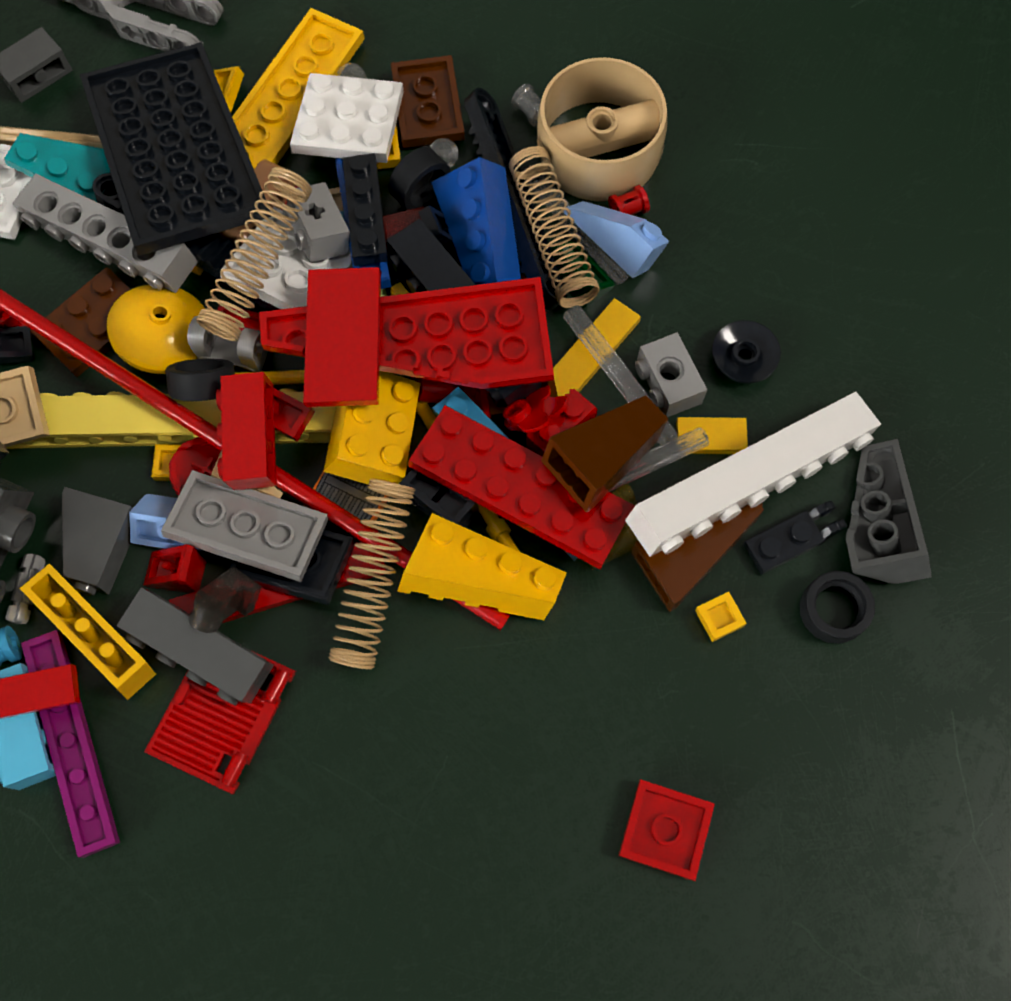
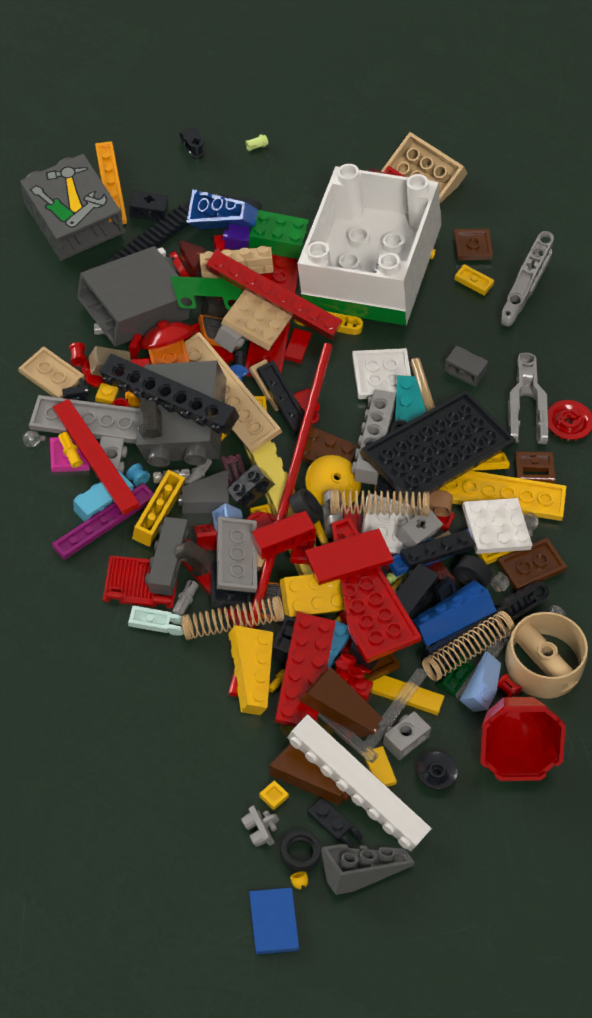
camera: 65 degrees right, 15 degrees down
(46, 545) = (198, 473): none -> light grey axle
(66, 465) = (232, 460): none -> clear pink tile
(117, 457) = (251, 486): none -> black brick
(250, 33) = (535, 463): none -> reddish brown plate
(289, 643) = (185, 597): none -> light grey axle
(313, 712) = (155, 620): none -> light aqua hinge
(666, 830) = (151, 796): red plate -> none
(738, 205) = (521, 739): none -> red piece
(791, 657) = (254, 819): none -> light grey hips
(883, 618) = (299, 879): none -> yellow hinge
(948, 692) = (273, 921): none -> blue tile

